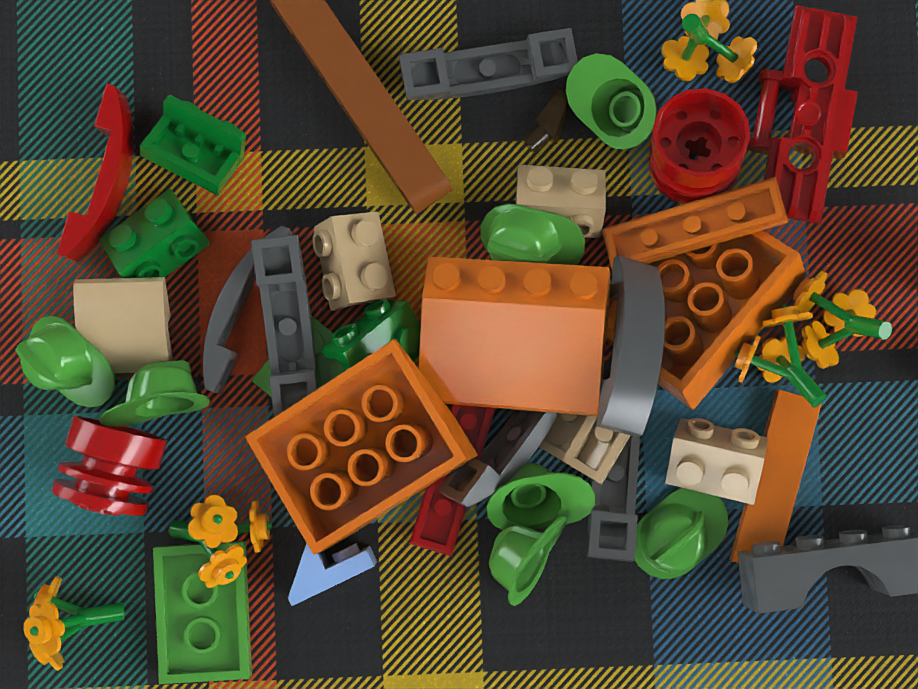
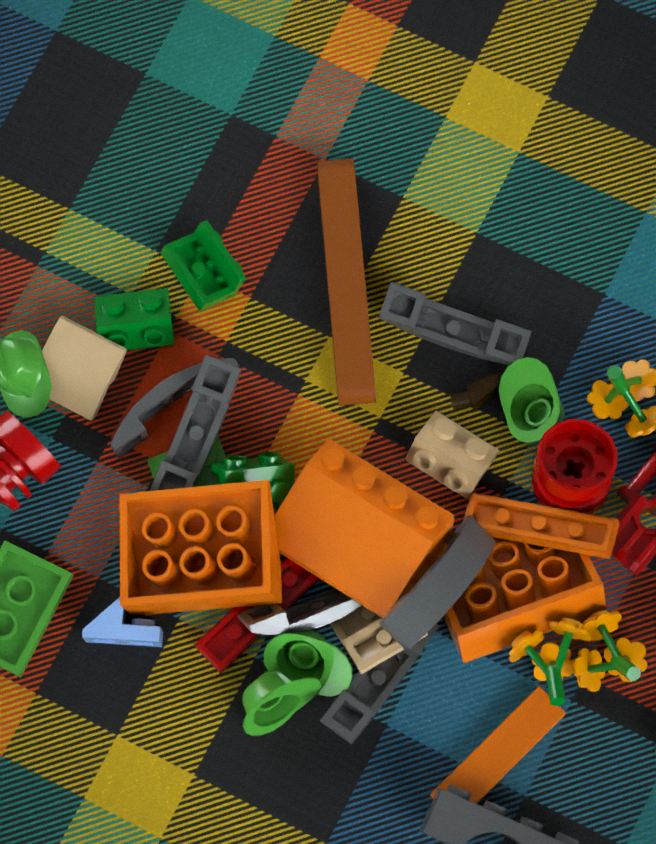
camera: 30 degrees right, 10 degrees down
(82, 231) = (88, 284): red slope -> none
(157, 392) = (73, 431): bright green piece -> none
(215, 524) = (60, 544): light orange plant -> none
(353, 260) = (272, 413): tan bracket -> none
(531, 236) = (415, 466): bright green piece -> none
(680, 533) = (403, 753): bright green piece -> none
(716, 460) = (459, 710): tan bracket -> none

